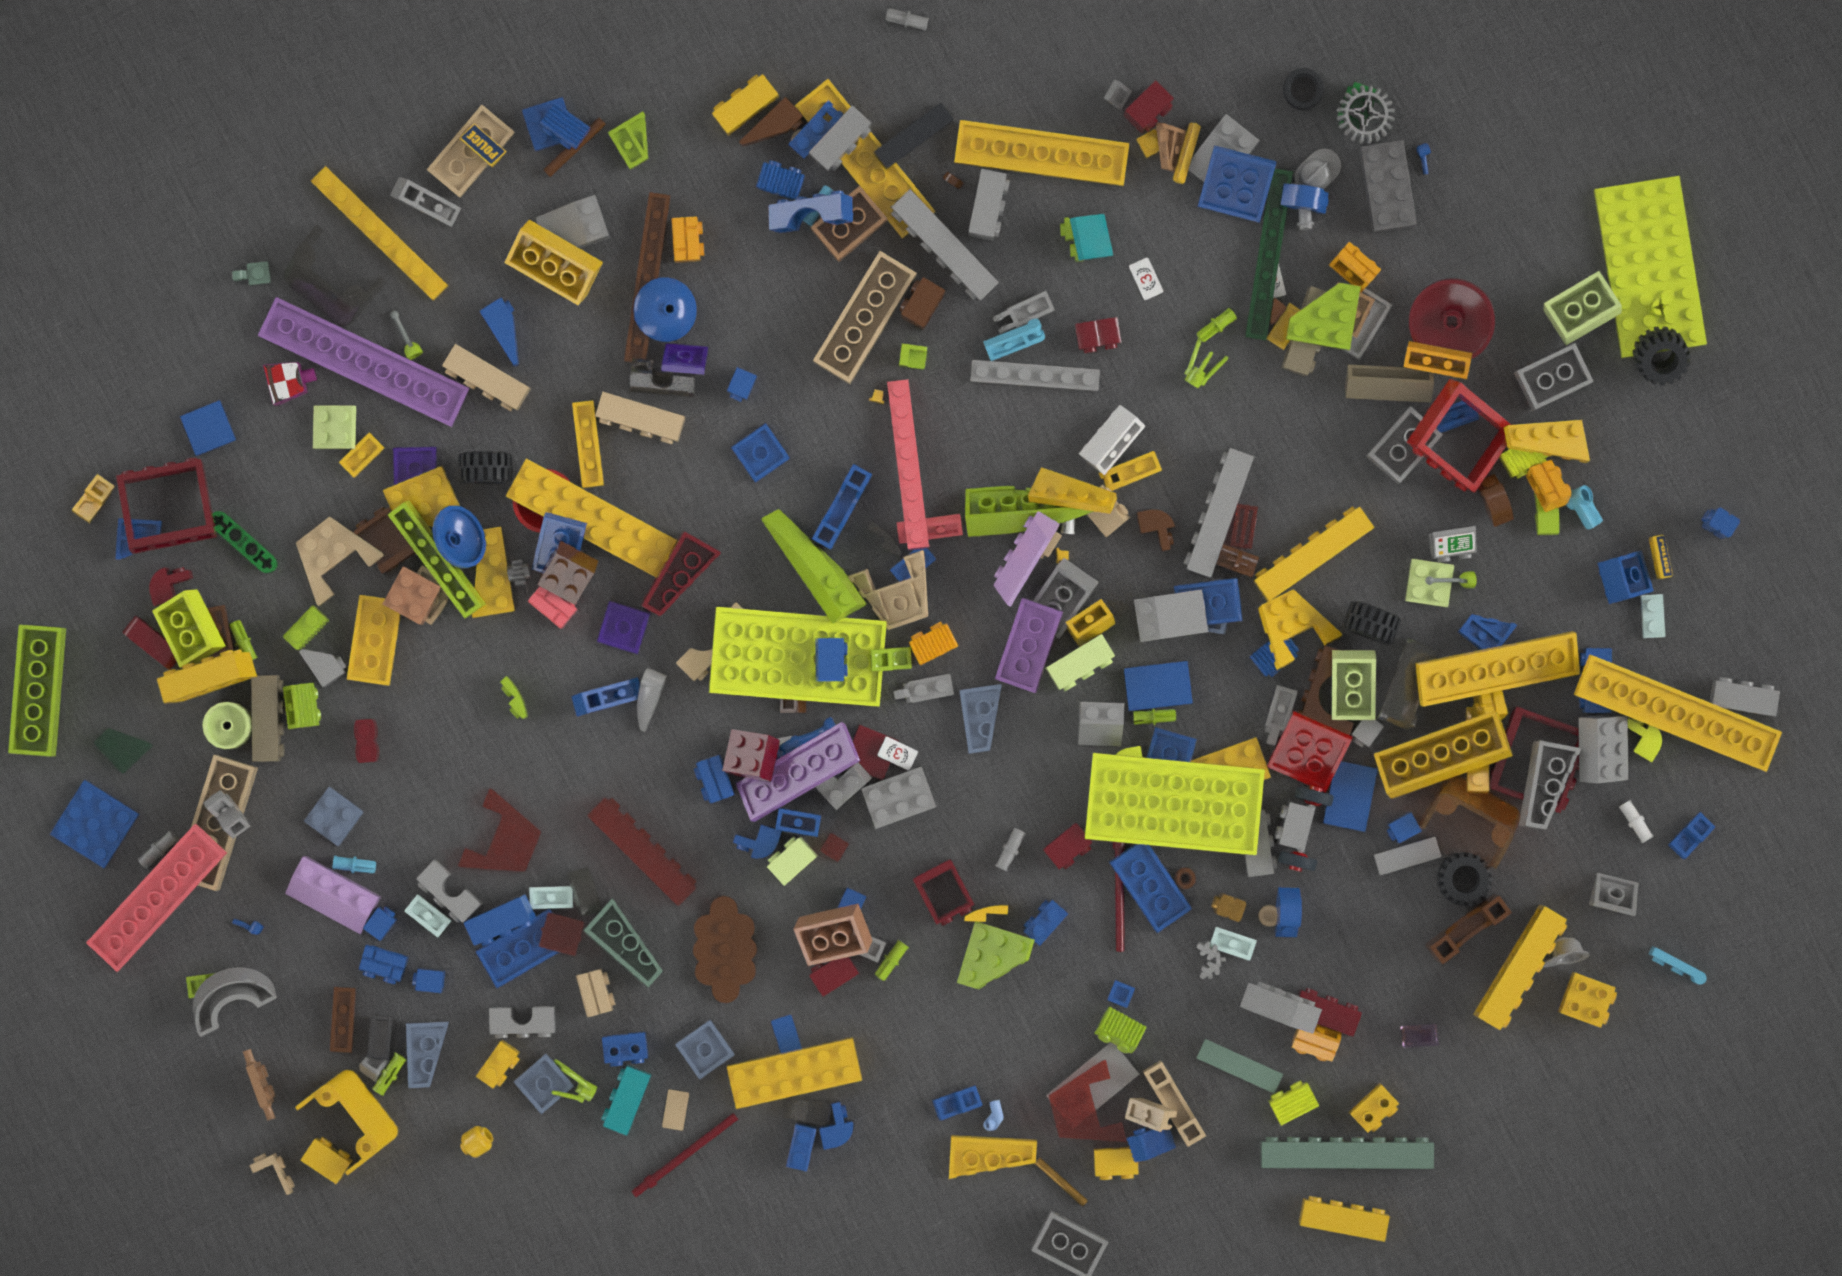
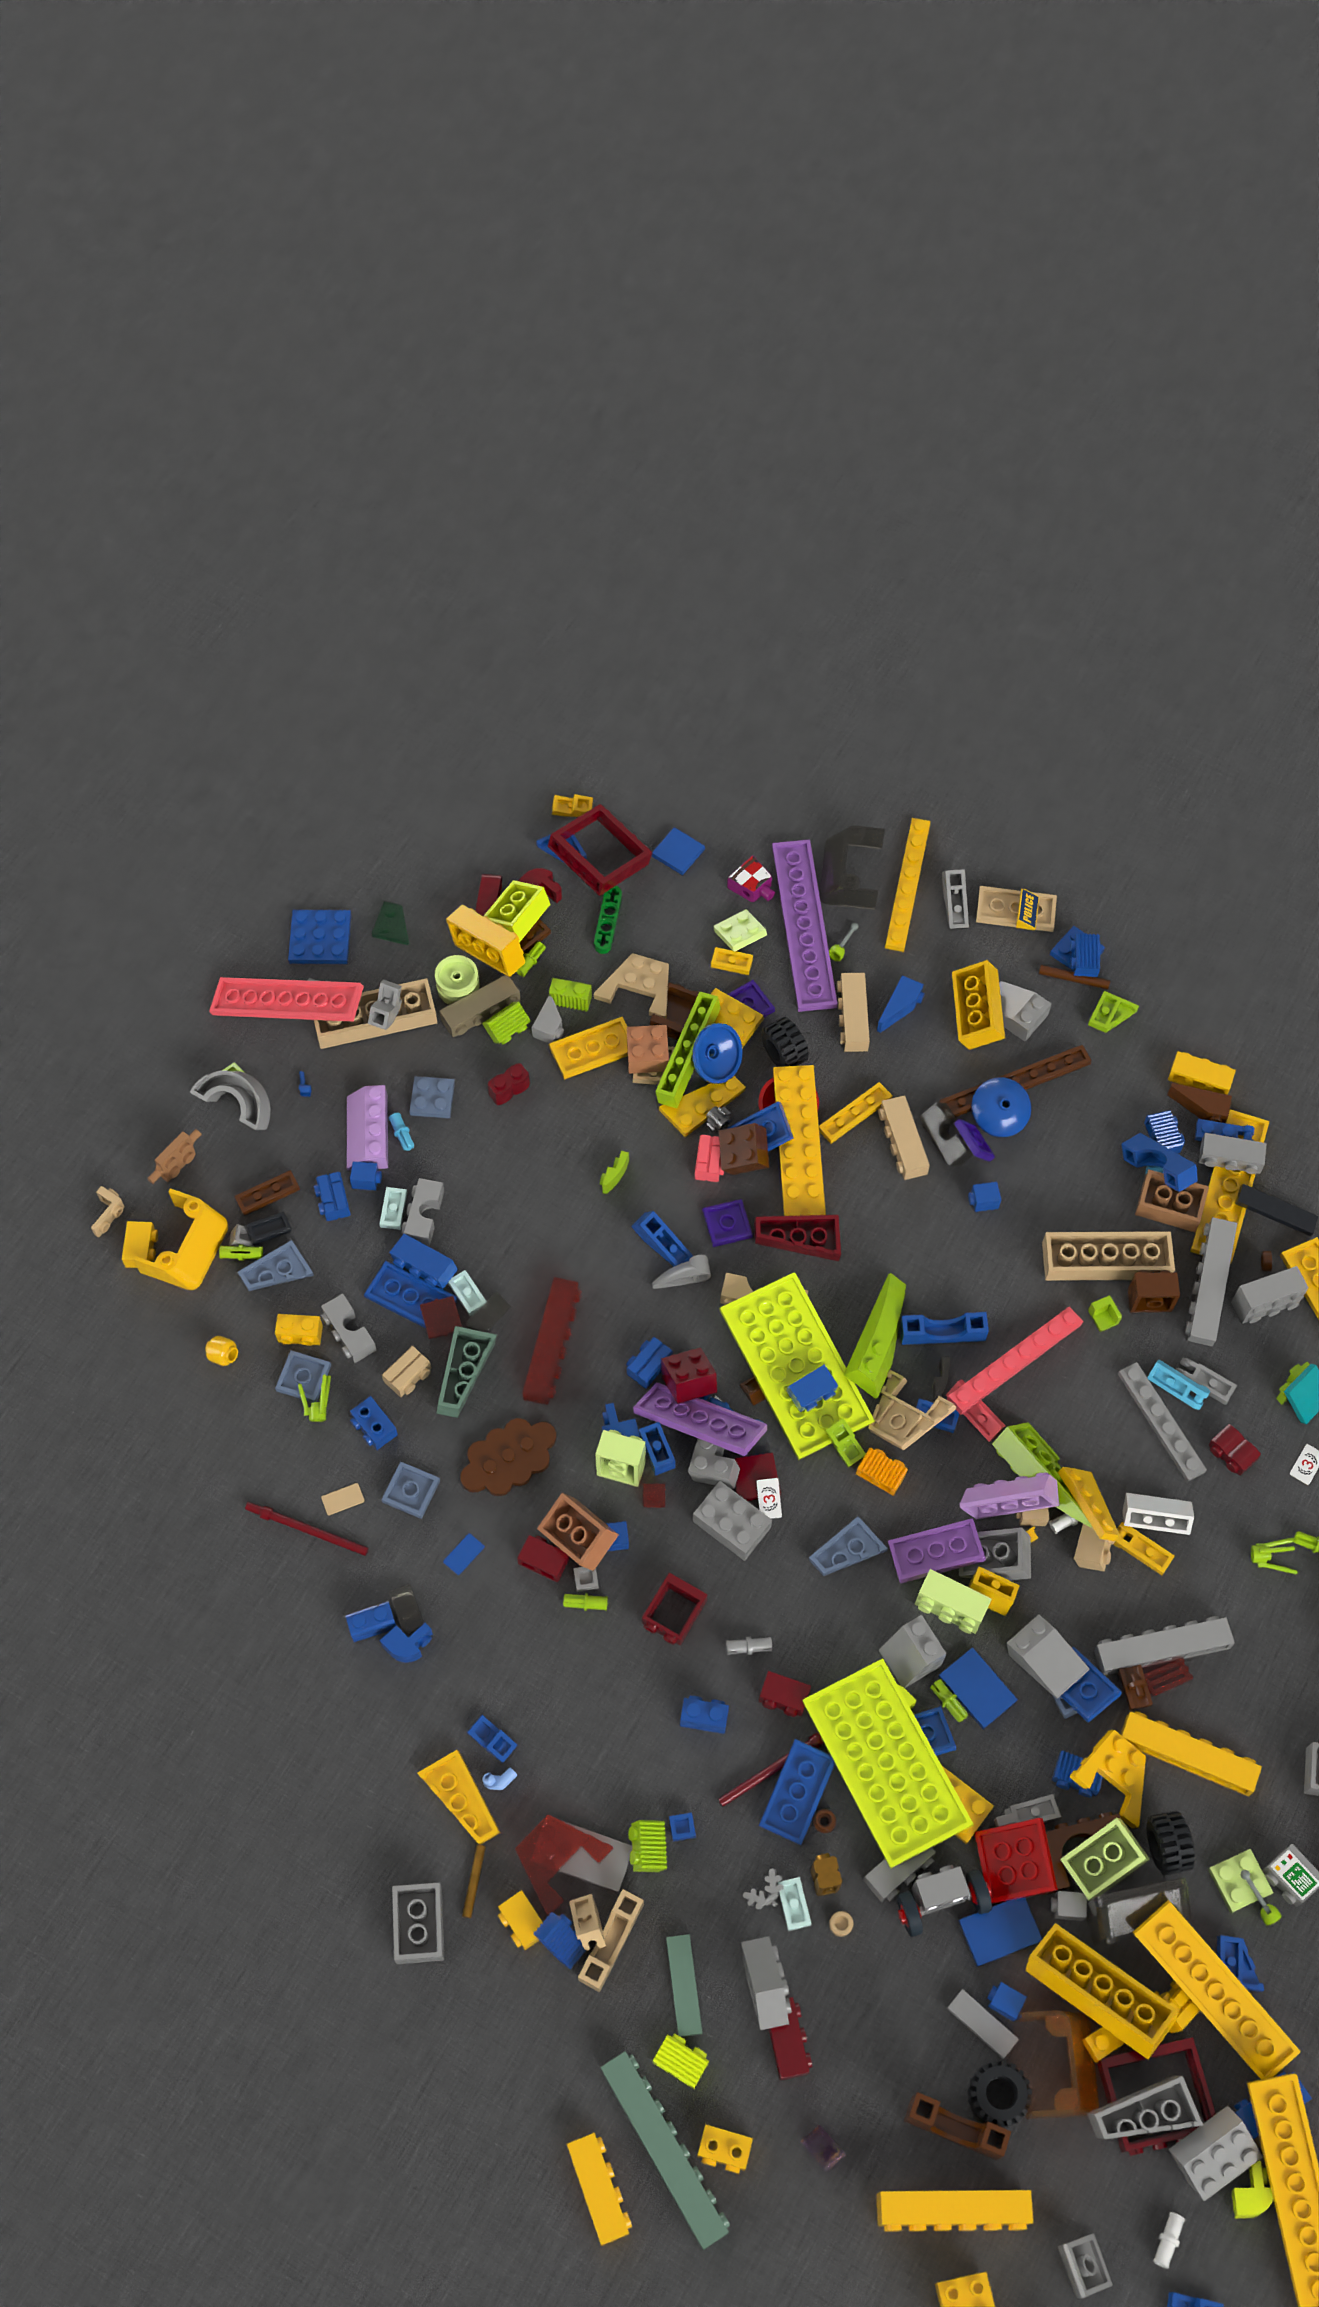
camera: 60 degrees right, 25 degrees down
(37, 690) = (400, 841): lime brick -> none
(256, 273) = (817, 820): sand green plate -> none
(429, 980) = (339, 1238): blue brick -> none
(512, 842) = (496, 1238): clear red wing -> none
(626, 1099) = (327, 1450): teal brick -> none
(686, 239) = (1066, 1092): light orange brick -> none
(760, 452) = (940, 1244): blue tile -> none
(794, 1072) = (435, 1576): yellow brick -> none
(877, 397) = (1051, 1307): yellow piece -> none
(926, 689) = (839, 1490): light grey hinge -> none
(980, 914) = (676, 1654): yellow slope -> none
(992, 954) = (645, 1684): lime plate -> none
(1157, 521) = (1116, 1595): reddish brown brick -> none
(1288, 912) = (856, 1938): blue brick -> none
(1321, 1043) = (754, 2046): light orange brick -> none
(1567, 952) = (997, 2251): light grey piece -> none

